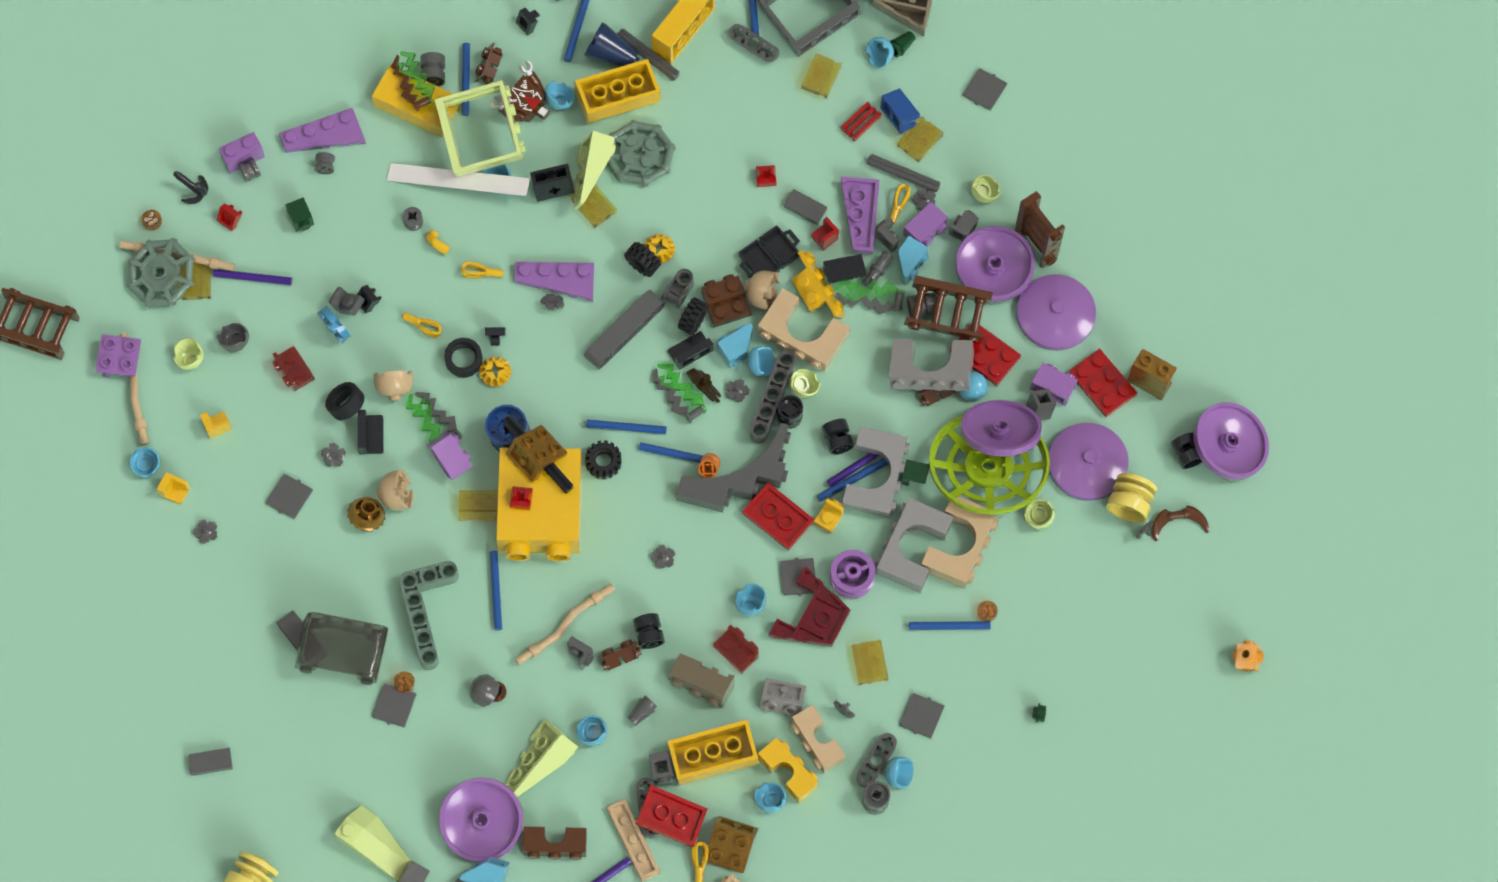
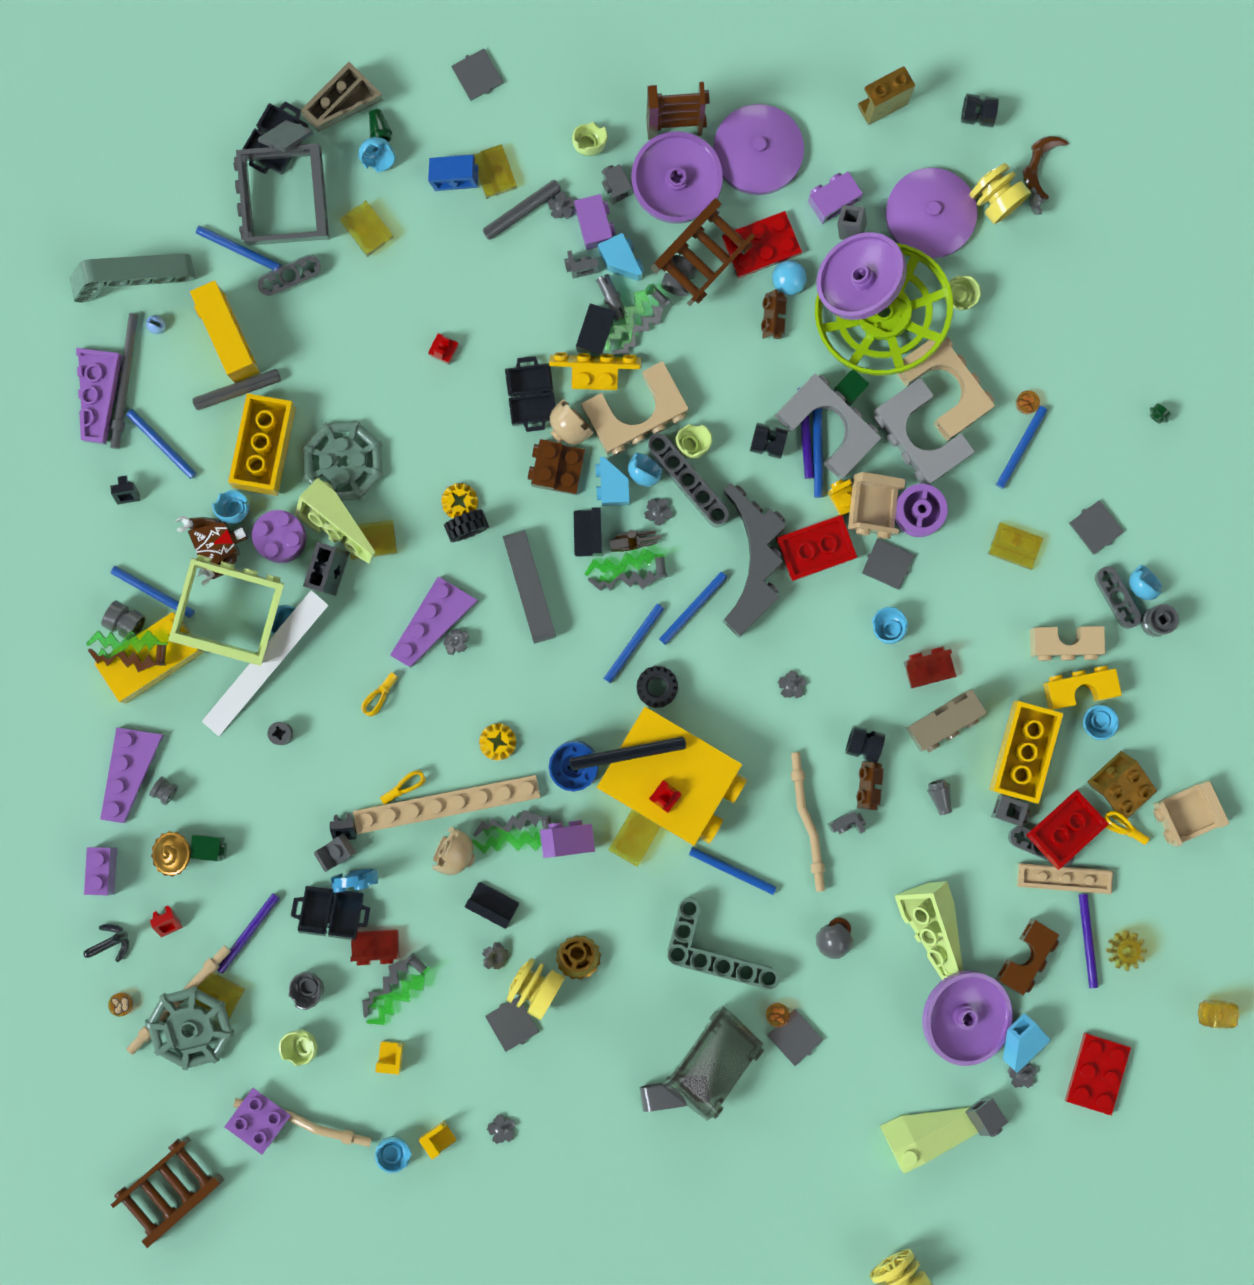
camera: 60 degrees left, 15 degrees up
(210, 761) = (750, 1253): dark grey tile -> none
(249, 170) = (125, 872): dark grey wheel -> none
(261, 399) = (416, 984): none -> piece
(281, 192) = (171, 853): none -> pearl gold piece
(300, 323) = (320, 910): none -> black piece
(325, 492) = (535, 988): none -> light yellow wheel
(350, 407) = (458, 911): black tyre -> none
(395, 492) = (572, 915): tan cylinder -> none
(428, 362) = (446, 804): none -> tan plate
(432, 239) = (322, 725): yellow arm -> none
(463, 343) = (447, 769): black tyre -> none
(490, 57) = (143, 552): reddish brown hinge -> none
(495, 333) = (458, 719): black tile -> none
(535, 451) = (625, 754): pearl gold bracket -> none
(557, 139) = (279, 536): none -> medium lavender wheel
(592, 730) = (936, 858): medium azure hair -> none
(610, 48) = (210, 424): dark blue cone -> none
(677, 291) = (517, 508): dark grey piece -> none
(693, 316) = (558, 510): black tyre -> none
(711, 461) = (726, 585): orange wheel -> none
(782, 697) = (1004, 650): light grey bracket -> none
(790, 411) = (716, 472): black wheel -> none
(805, 207) = (500, 328): dark grey tile -> none
(821, 619) = (946, 567): dark red wing -> none
(826, 234) = (543, 326): red panel -> none
(835, 537) = (874, 504): none -> tan panel
(843, 709) = (1052, 599): dark grey plant -> none
(861, 209) = (536, 274): medium lavender wing -> none
(871, 110) = (434, 200): red tile -> none
(897, 209) = (557, 239): yellow piece -> none
(953, 376) = (779, 289): light grey arch -> none
(1103, 383) = (858, 149): red plate -> none
(1231, 441) = (995, 63): medium lavender dish -> none
(1249, 663) = (1226, 185): light orange brick -> none

